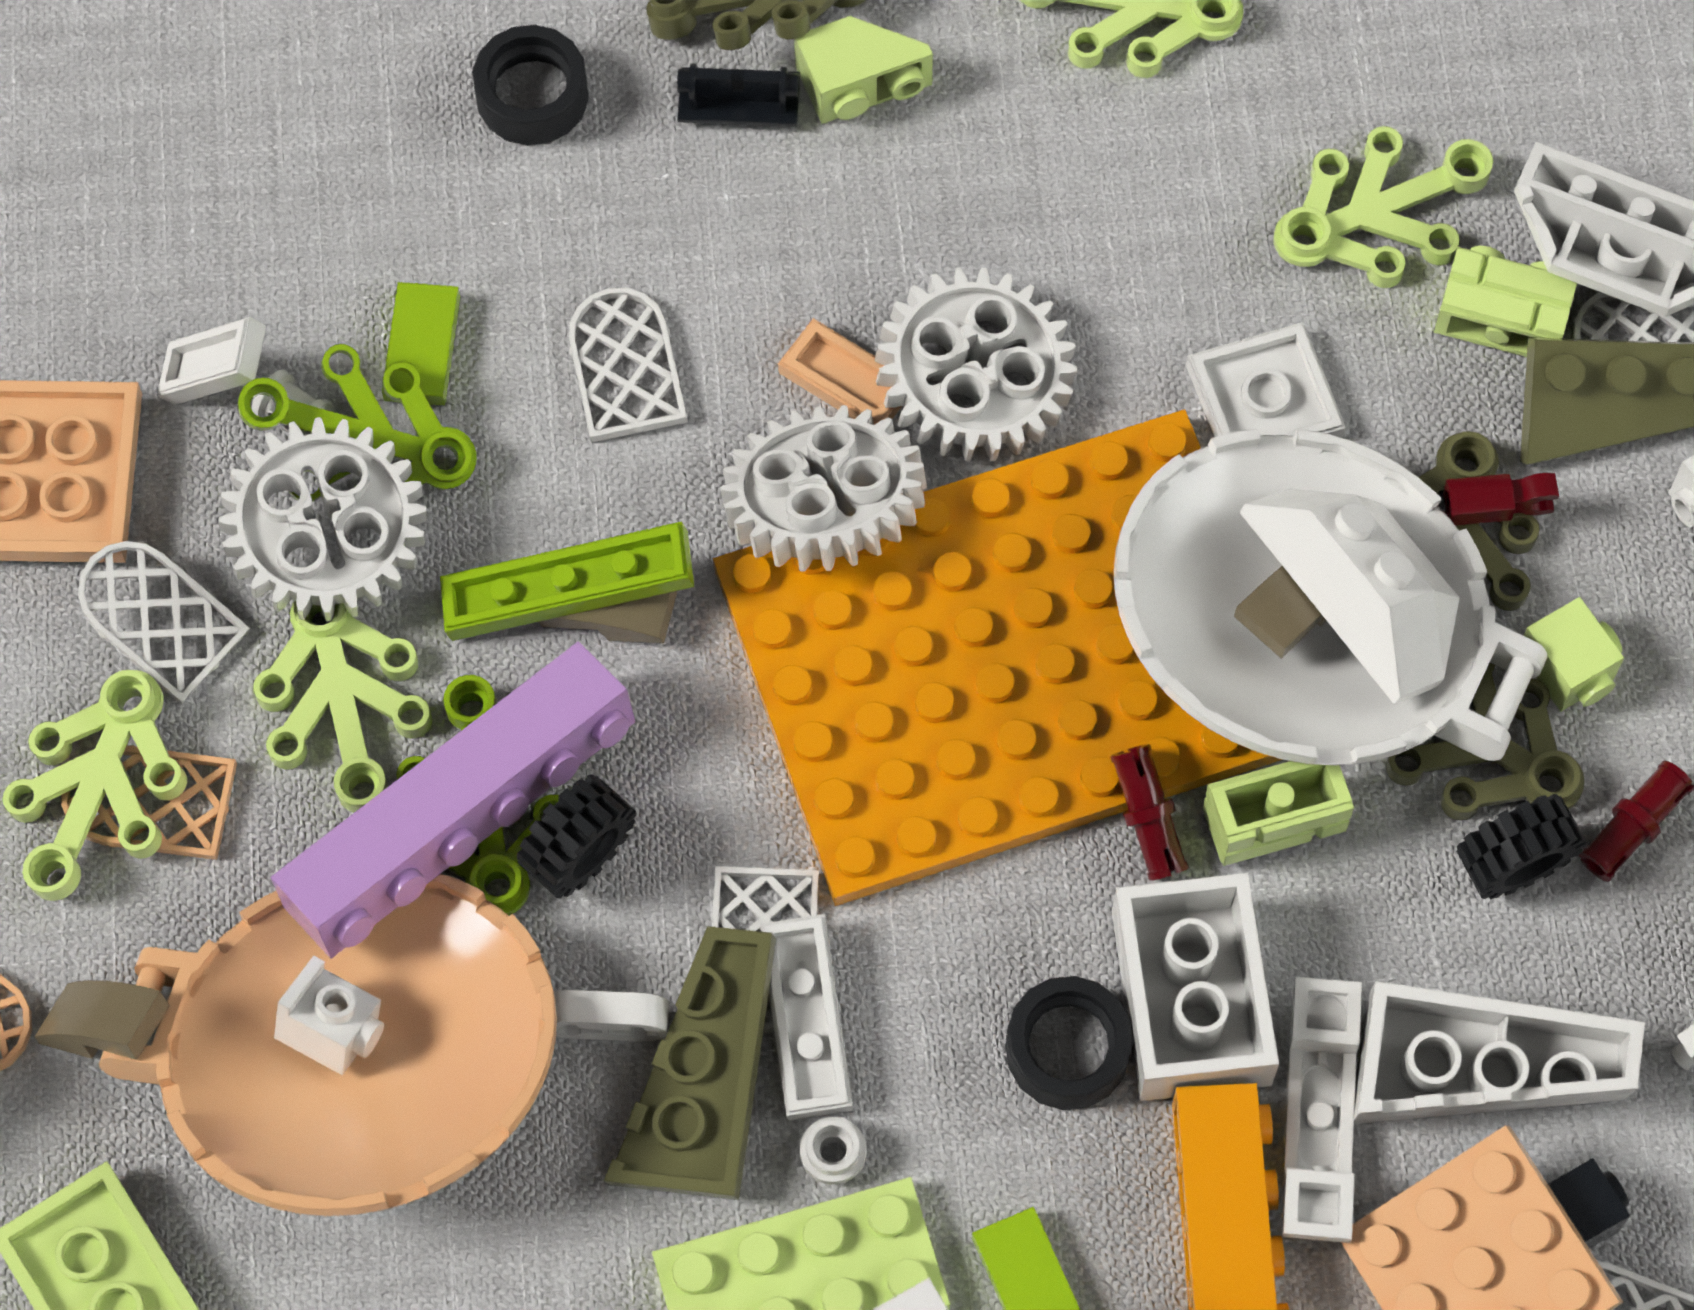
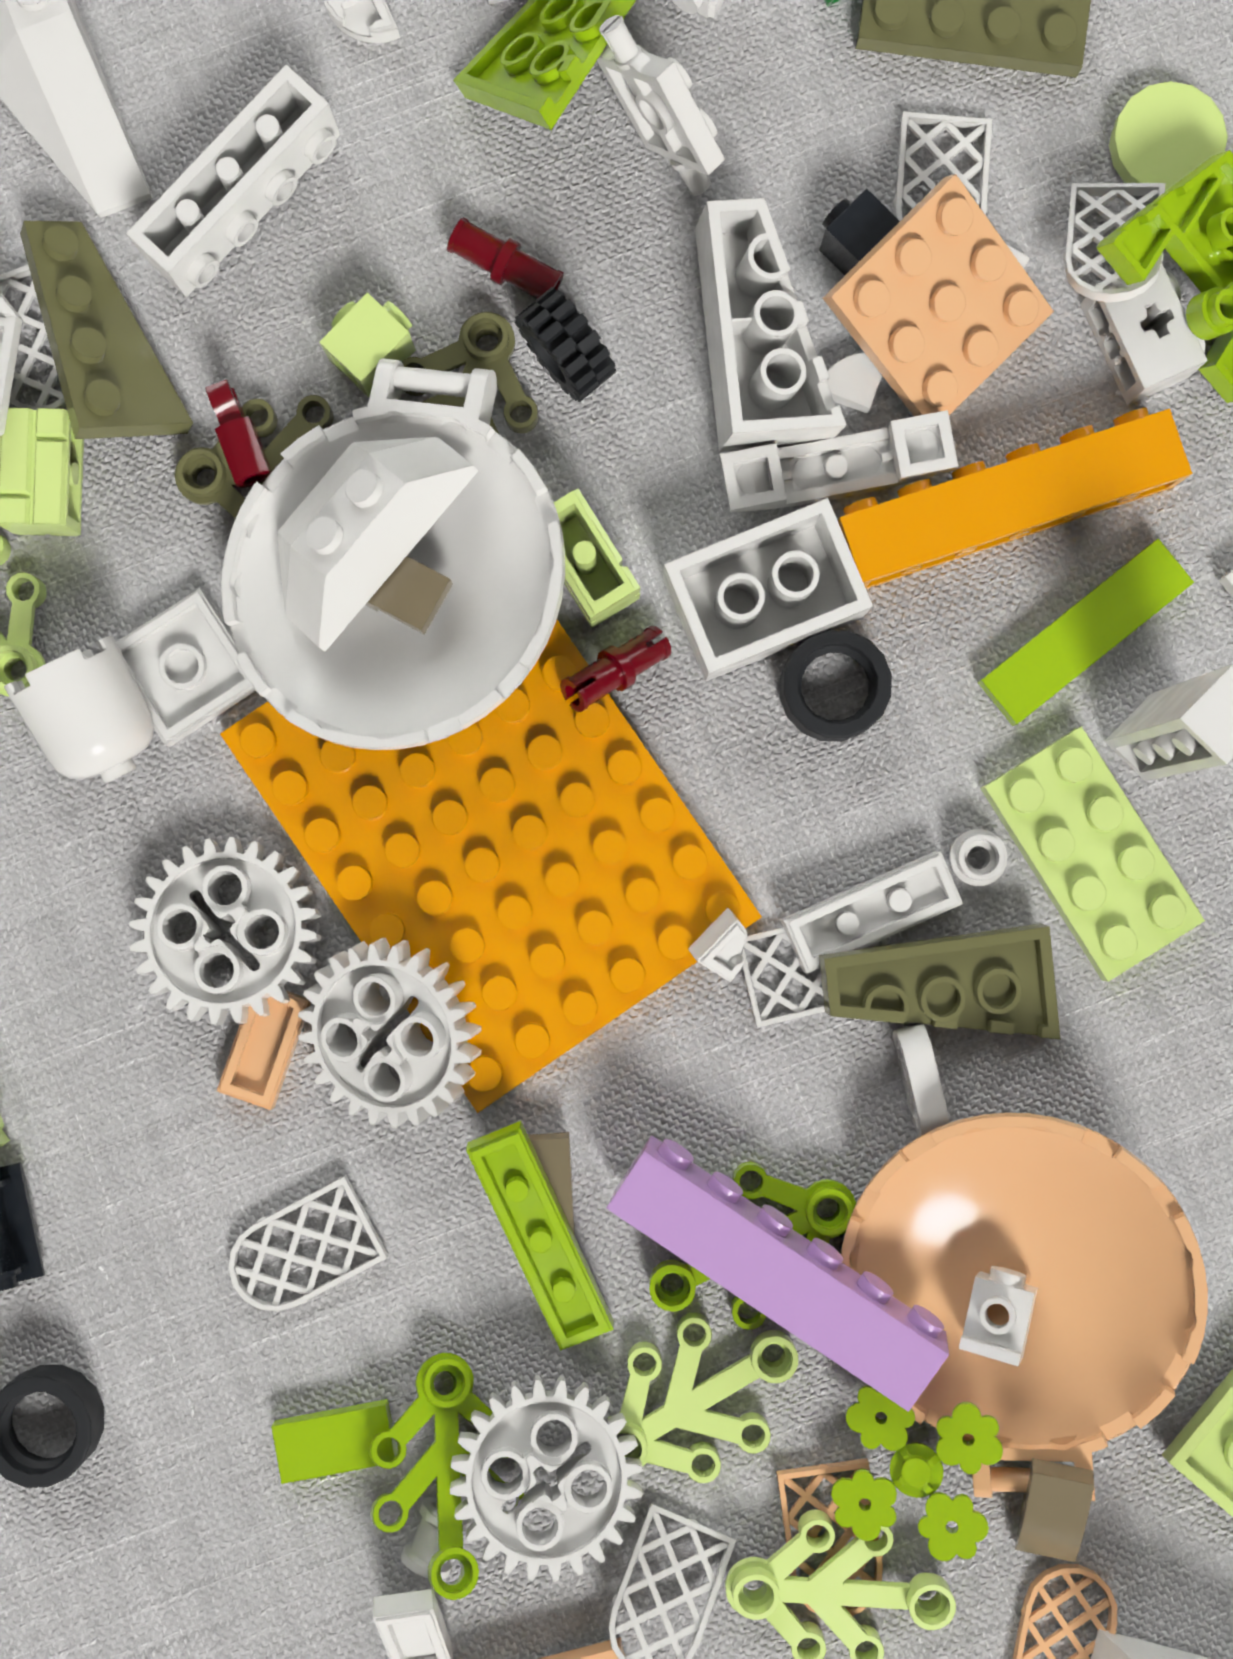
camera: 105 degrees left, 20 degrees up
(193, 888) = (917, 1473): none -> lime plant
(576, 836) = (780, 1154): black tyre -> none
(814, 842) = (721, 946): none -> white tile
(1237, 282) = (86, 712): none -> white cylinder
(1412, 1157) = (854, 382): none -> white tile

